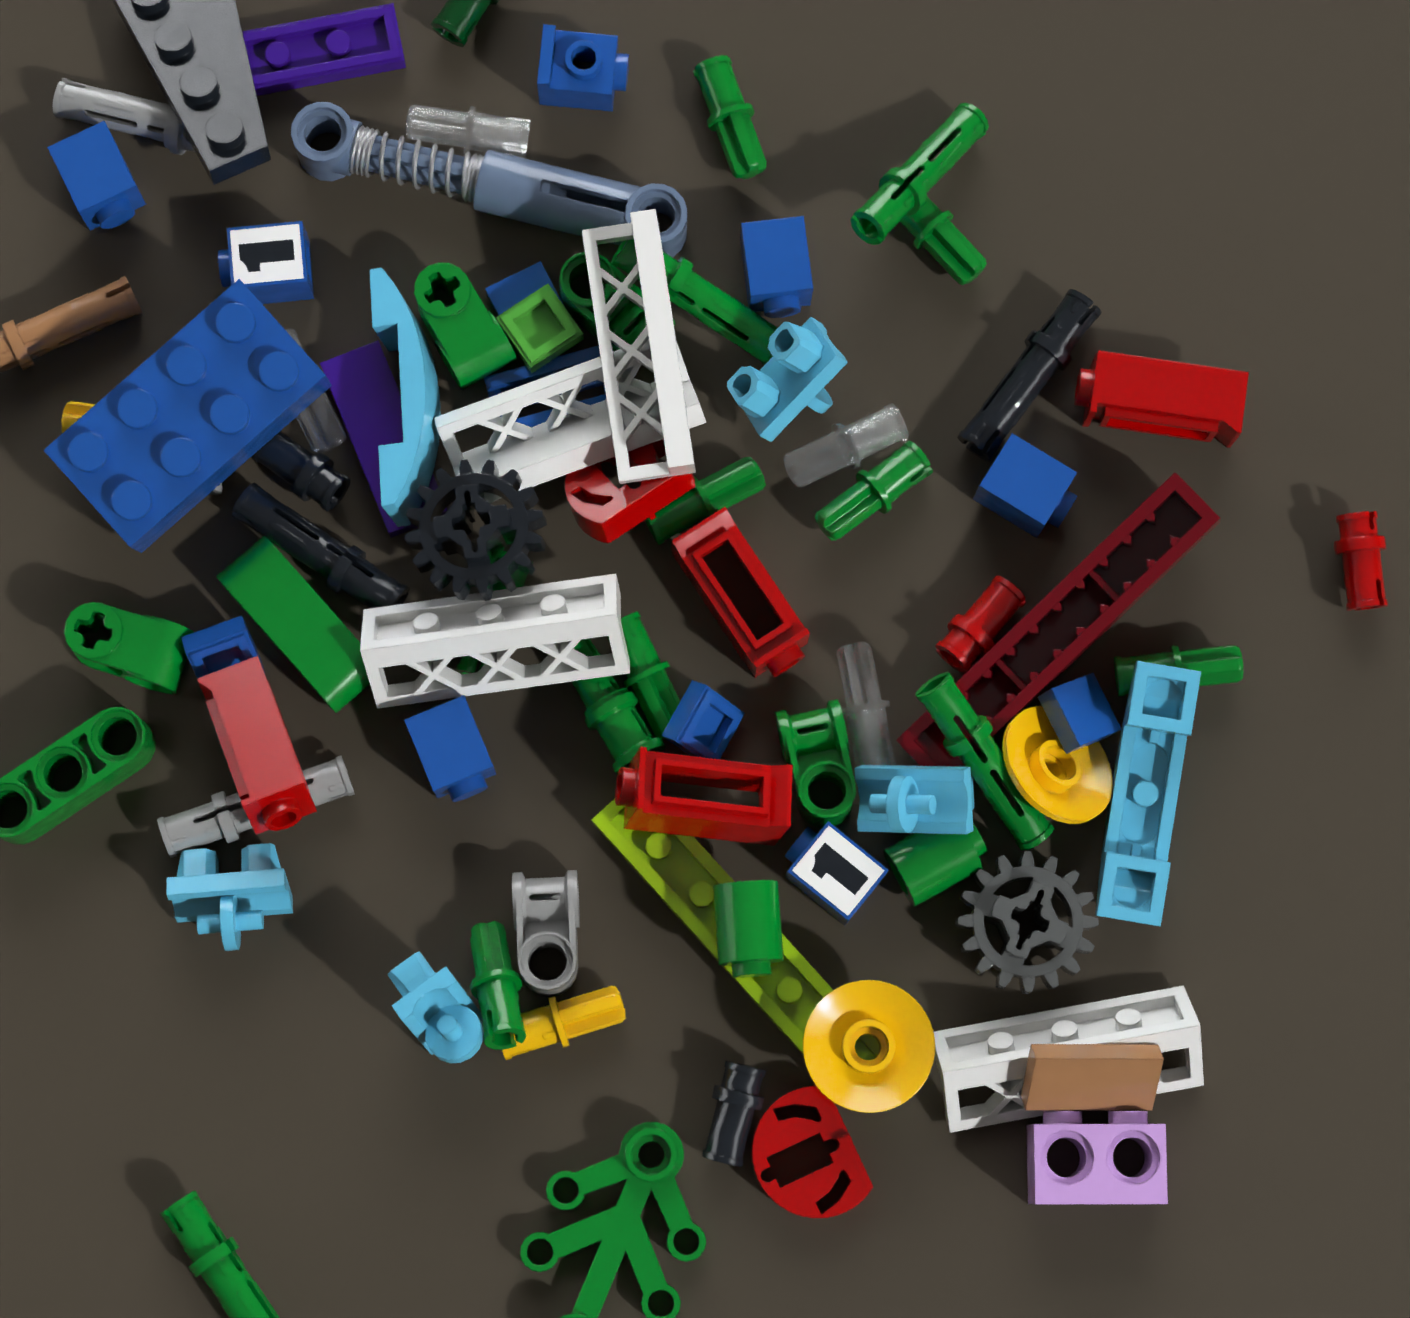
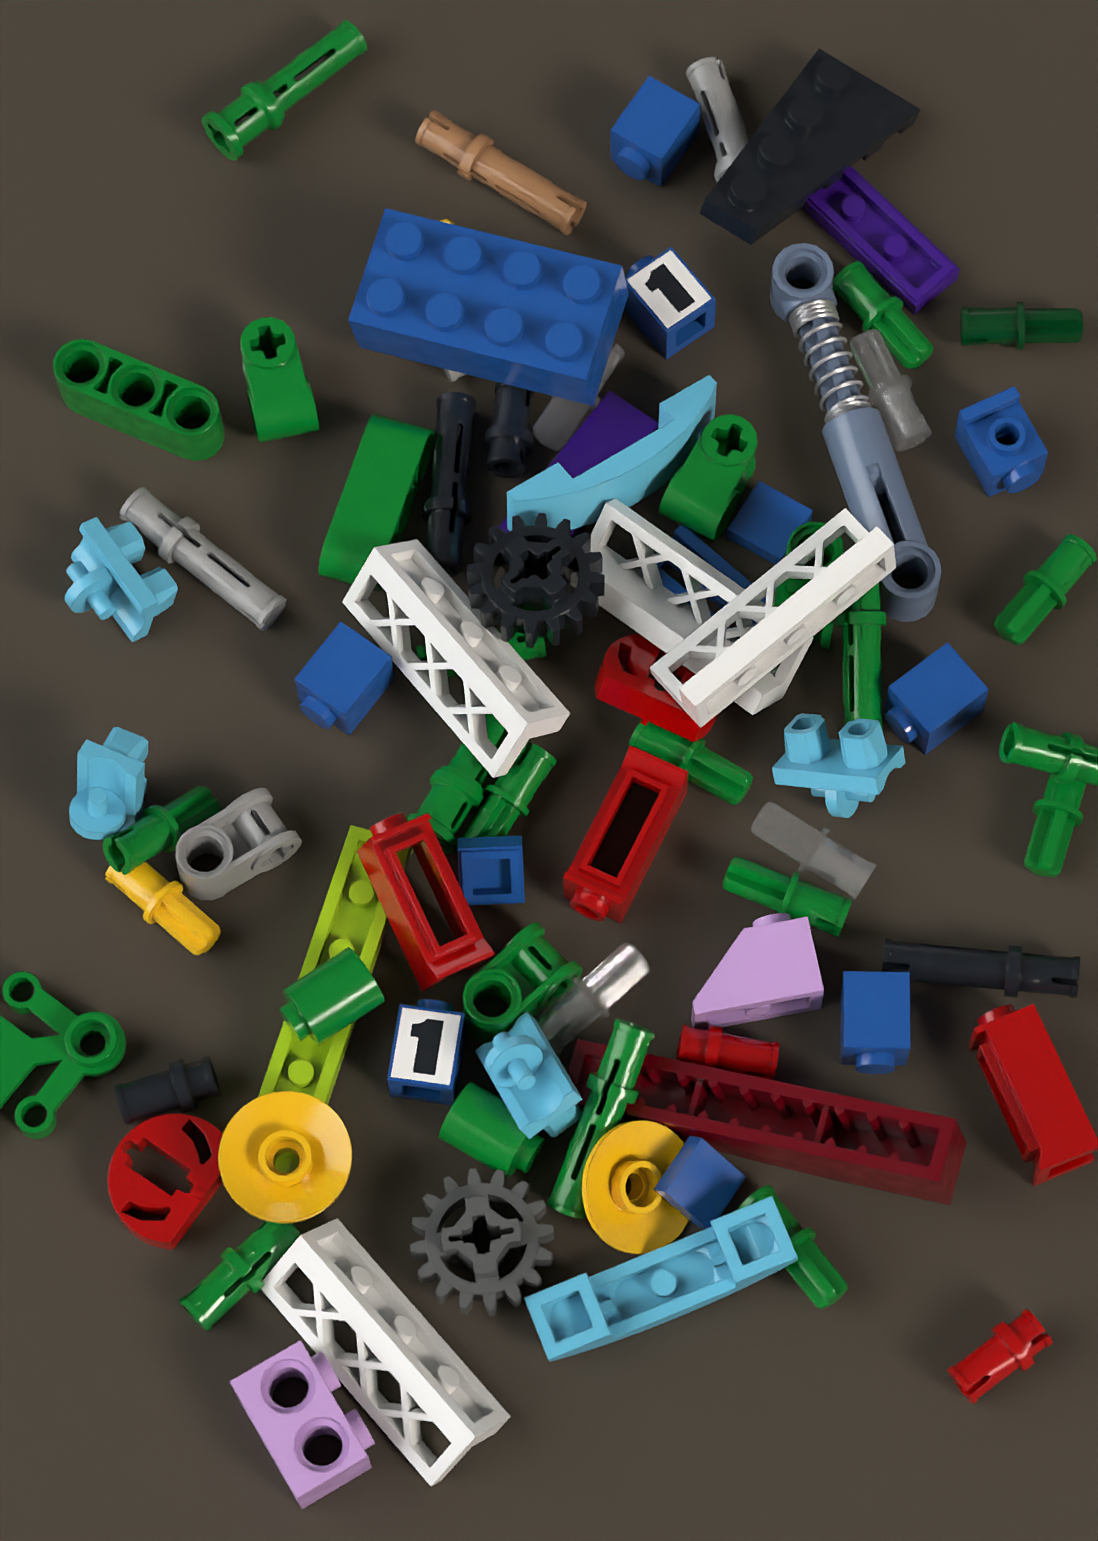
camera: 65 degrees right, 10 degrees down
(219, 646) = (313, 458): blue tile -> none
(257, 746) = (248, 524): window -> none
(397, 92) = (882, 313): none -> green axle
(540, 328) = (751, 539): bright green tile -> none
(931, 552) = (762, 975): none -> lavender slope
(932, 1146) = (239, 1272): none -> green pin
(1091, 1076) = (373, 1369): medium nougat tile -> none

